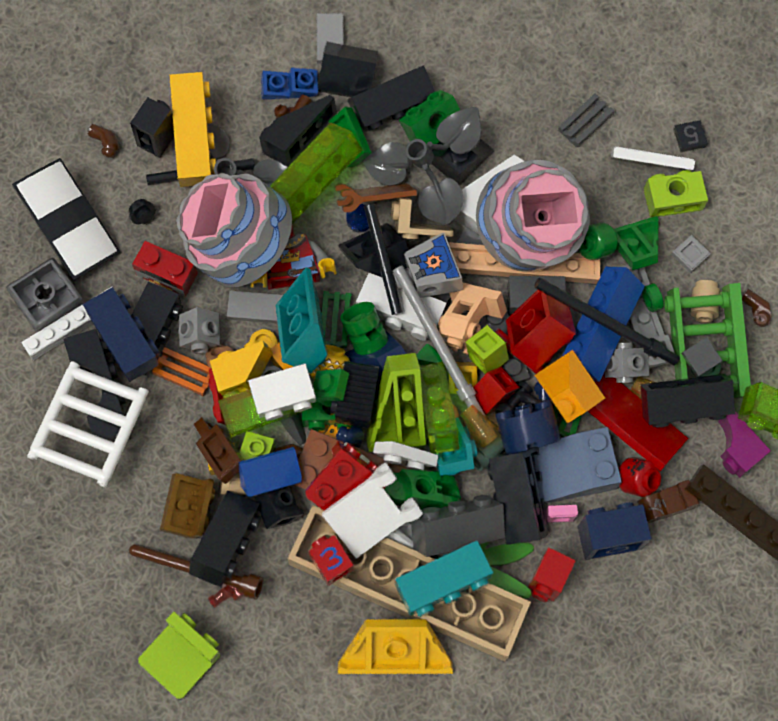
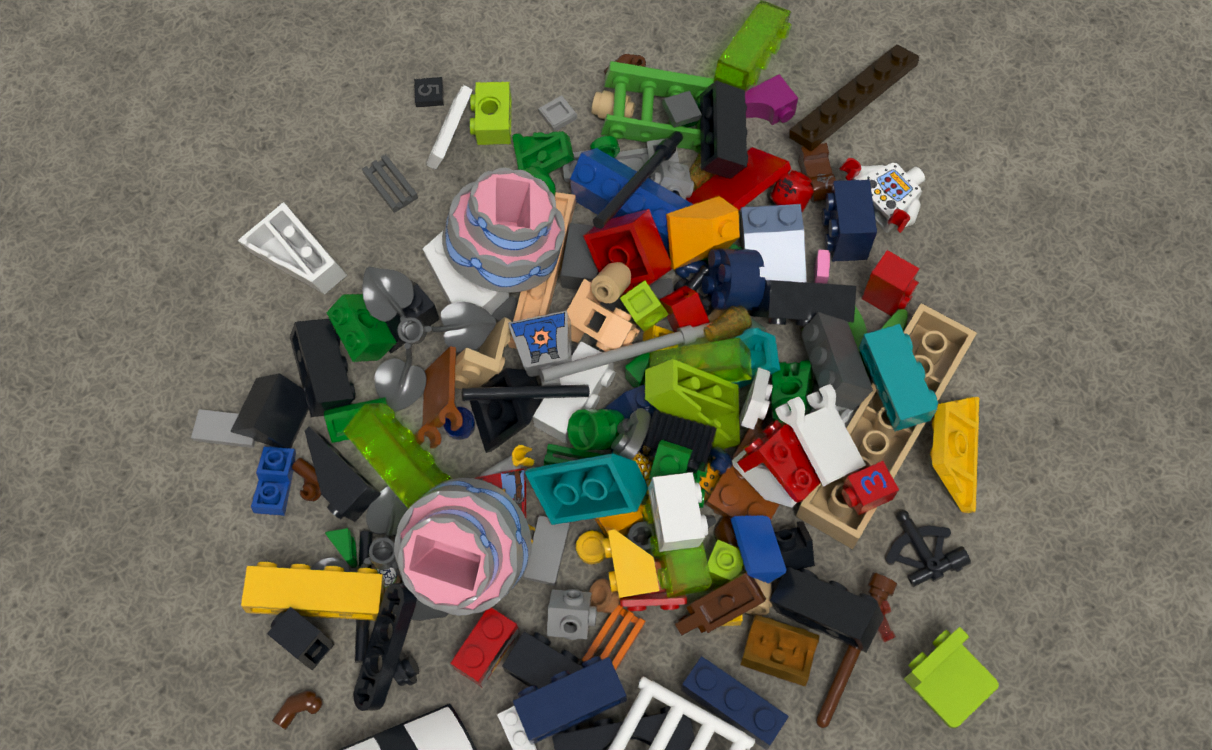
camera: 75 degrees left, 5 degrees down
(138, 471) = (734, 702): none -> dark blue brick
(150, 189) = (373, 684): none -> black beam
(237, 147) = (346, 545): none -> green slope
(282, 636) = (930, 566): none -> black piece
(362, 353) = (631, 434): none -> flat silver plate
(500, 54) = (293, 249): none -> white wedge
(501, 315) = (611, 282): none -> tan brick
(657, 570) = (893, 192): none -> torso

